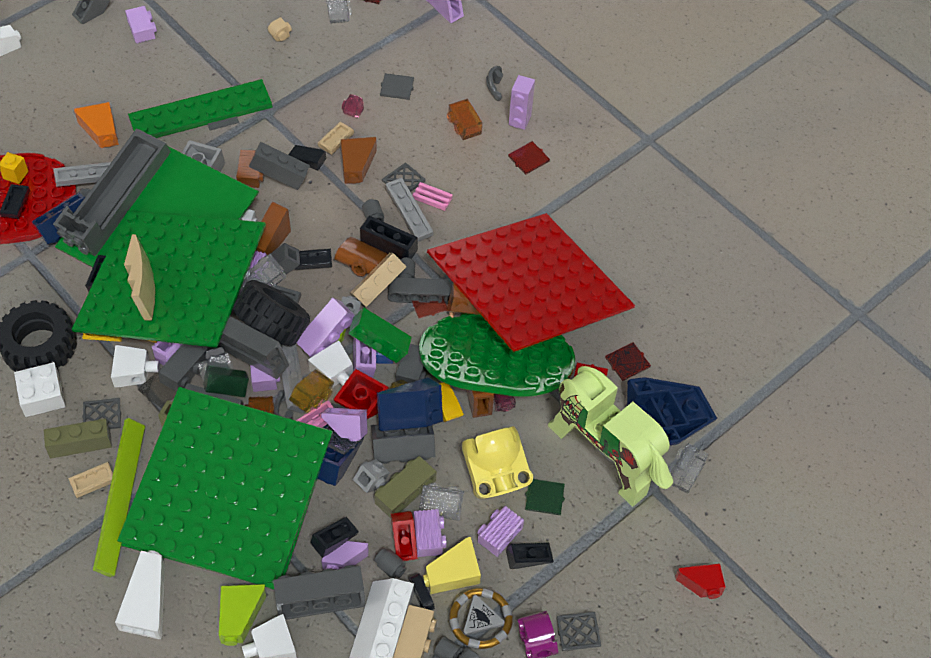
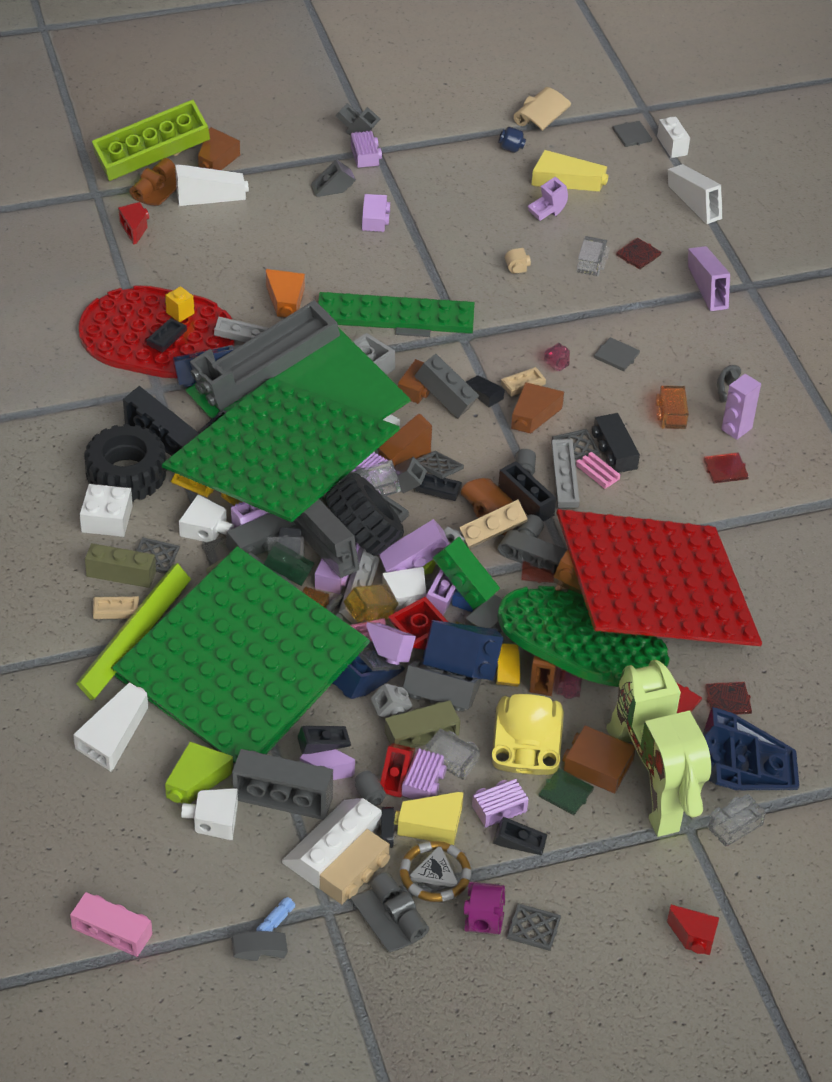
camera: 25 degrees right, 10 degrees down
(38, 285) = (149, 413): none -> black wedge
(140, 278) = (248, 434): tan slope -> none
(306, 246) = (438, 471): none -> dark grey window
(436, 167) = (615, 443): none -> black brick
(558, 458) = (599, 759): none -> dark orange brick

